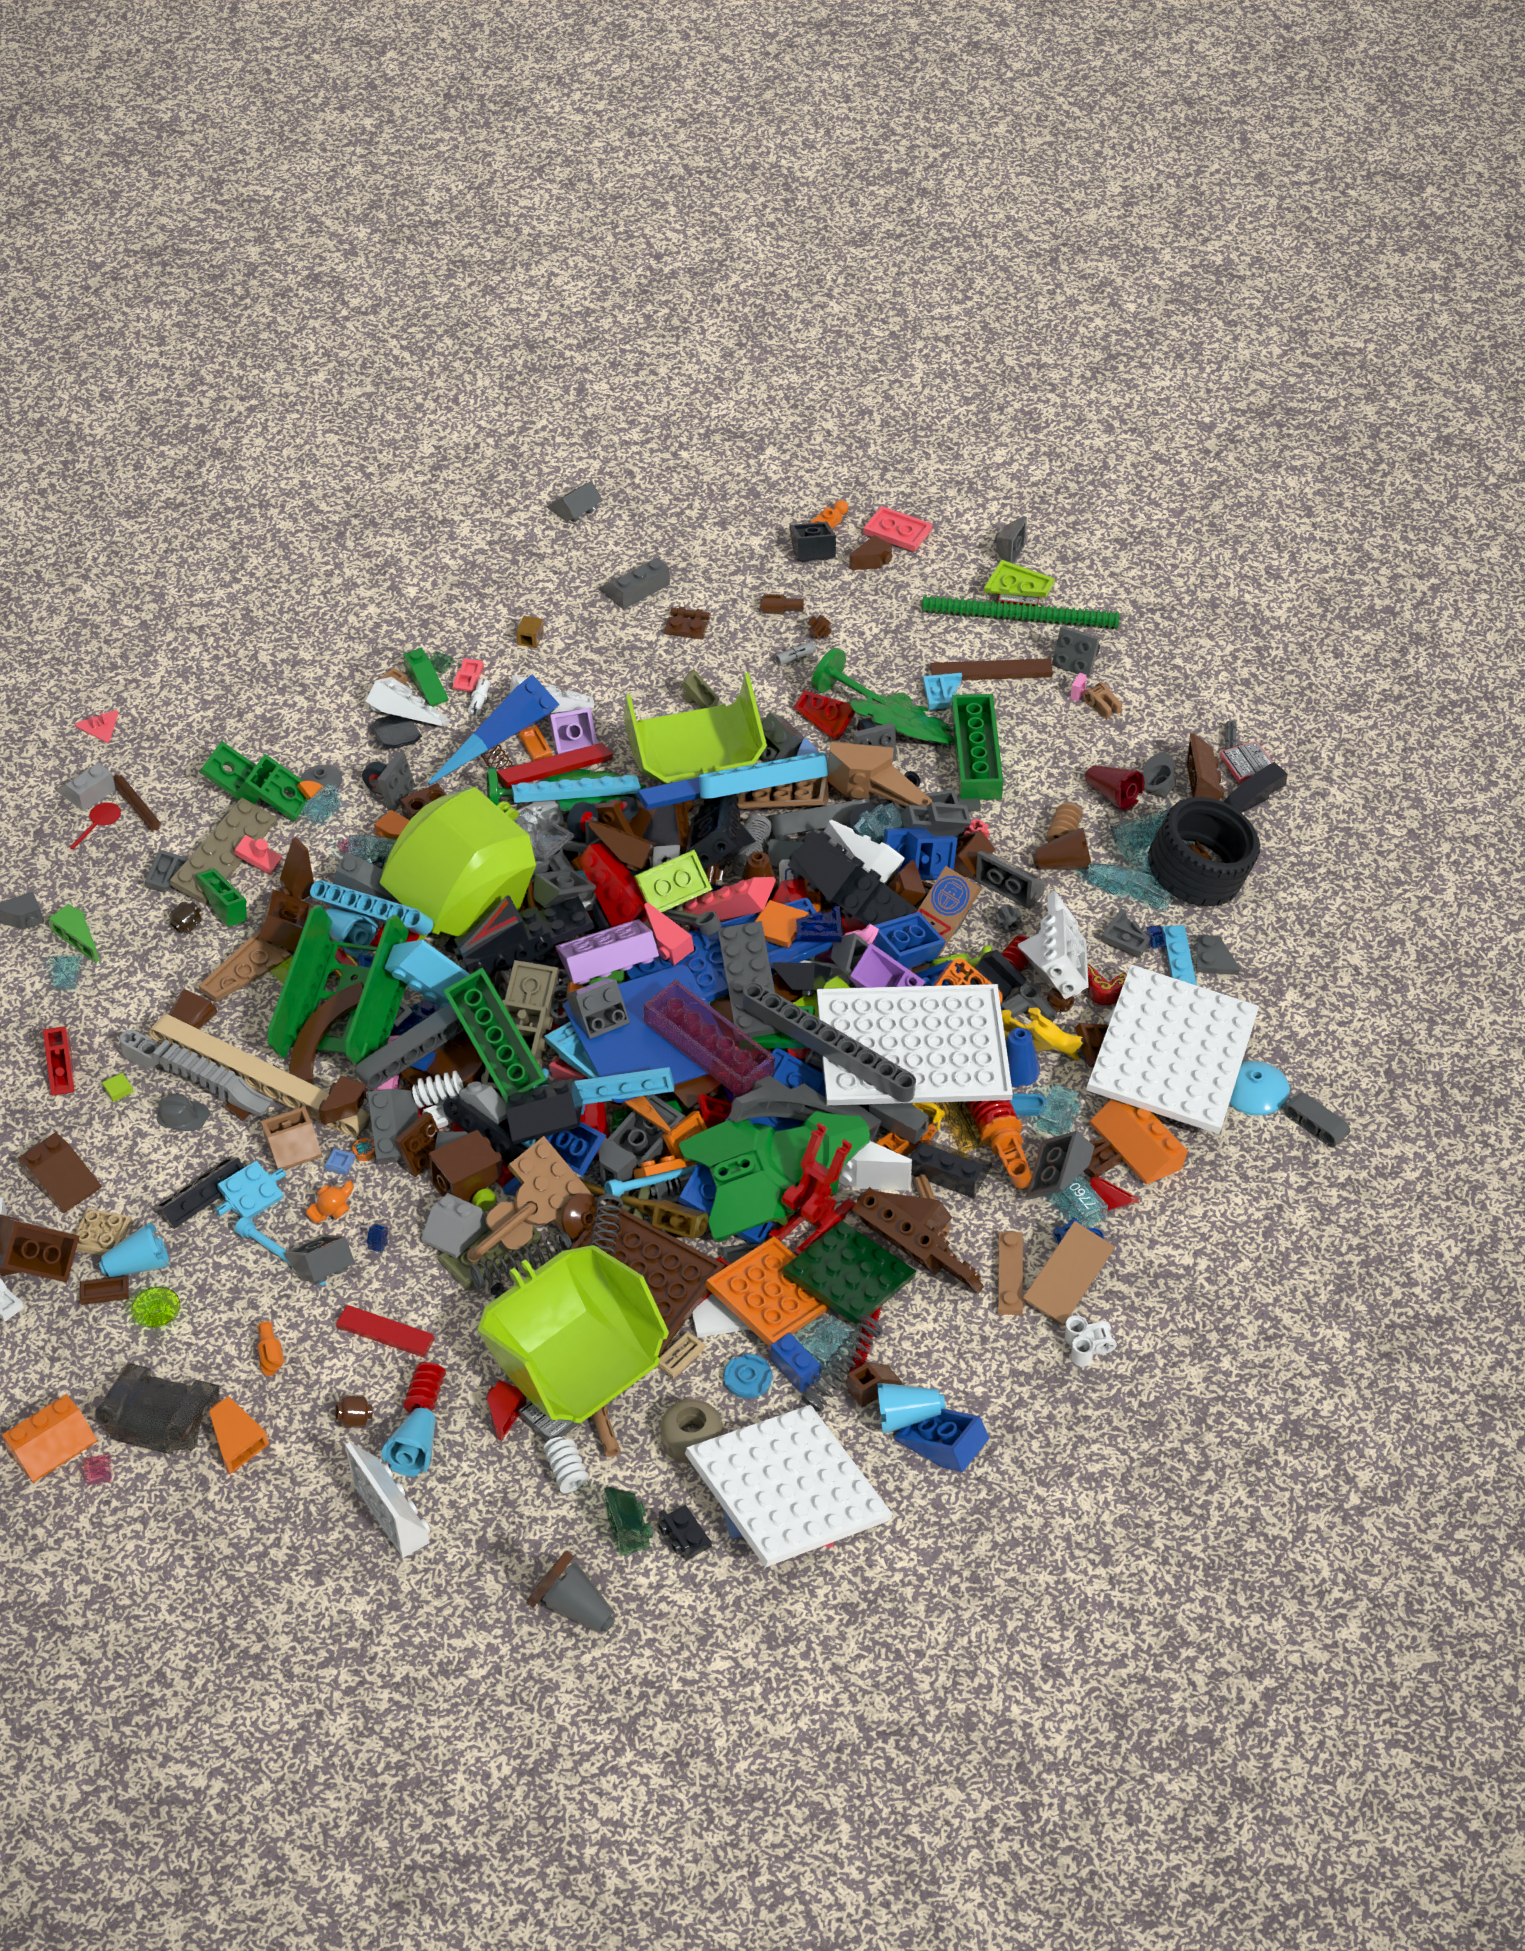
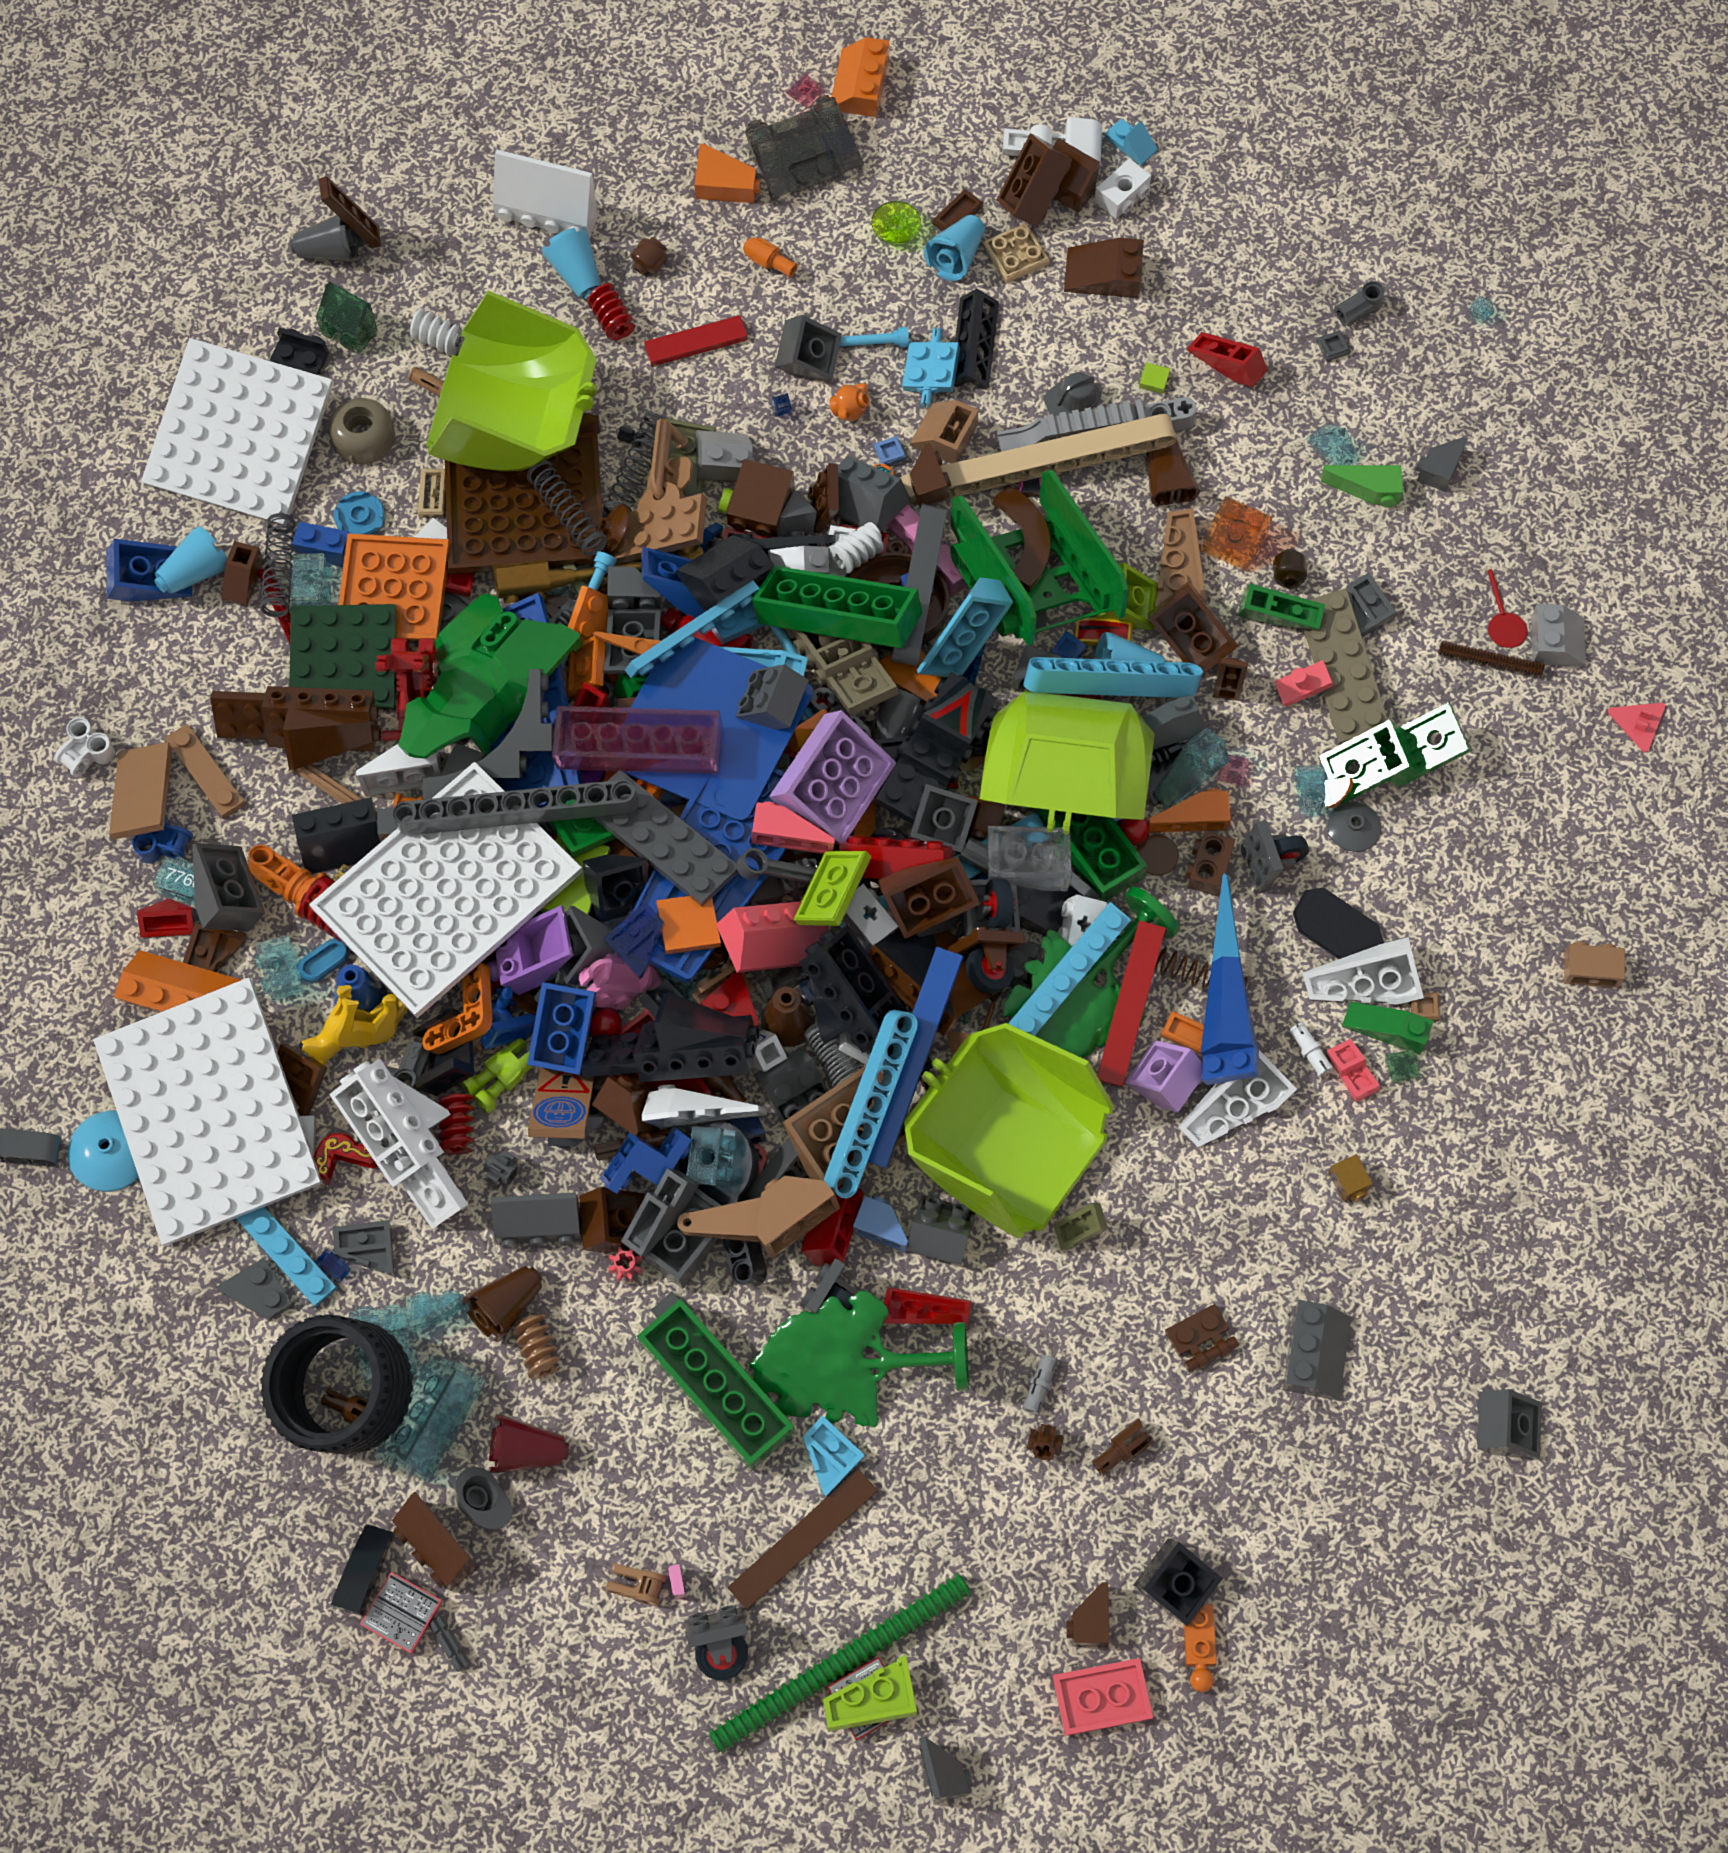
camera: 140 degrees right, 20 degrees up
(189, 957) = (1236, 533): none -> clear orange slope
(283, 635) = (1594, 965): none -> medium nougat brick

